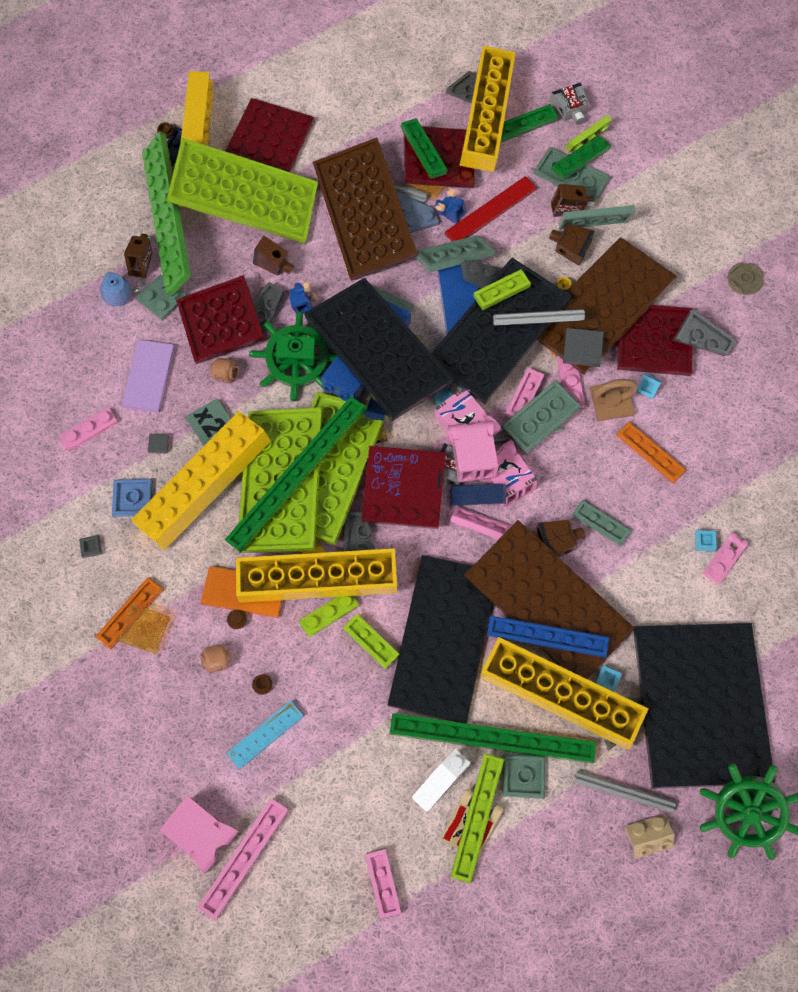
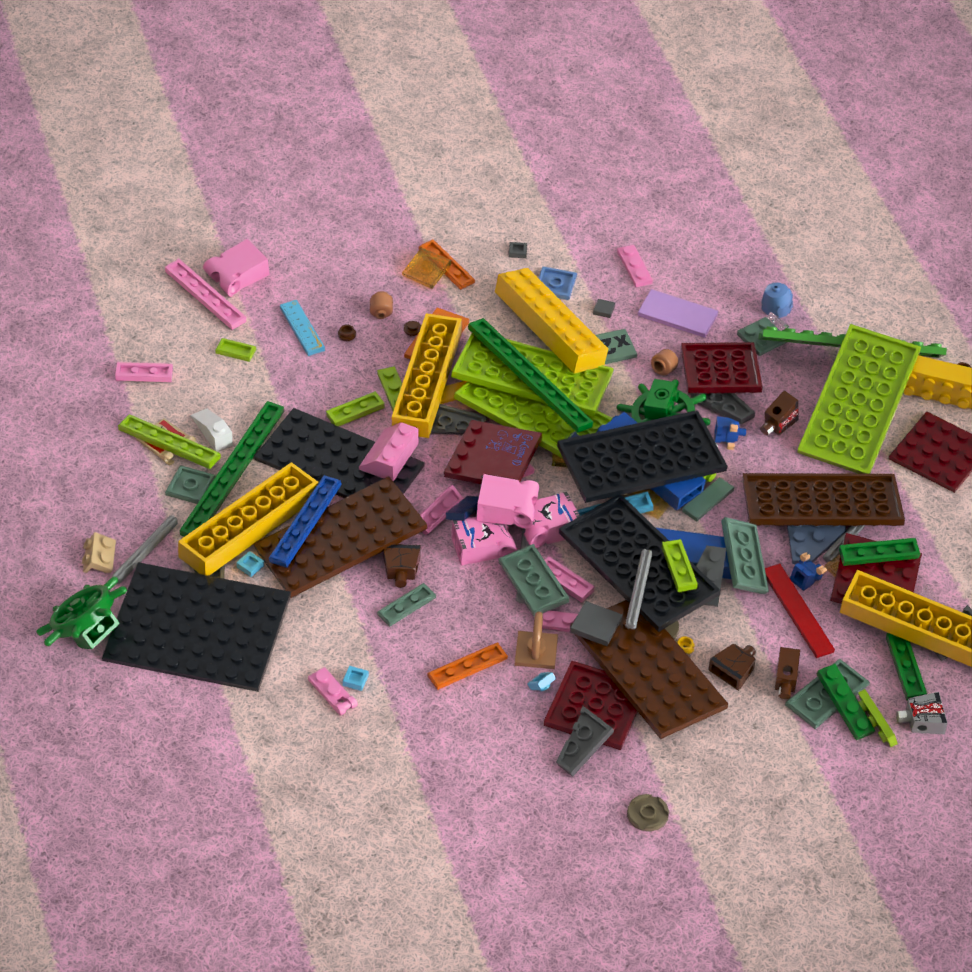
camera: 105 degrees right, 20 degrees down
(139, 248) = (811, 318): reddish brown torso -> none
(317, 795) = (235, 349): none -> lime tile
(429, 584) = (391, 451): none -> bright pink slope
(597, 217) = (756, 685): sand green tile -> none

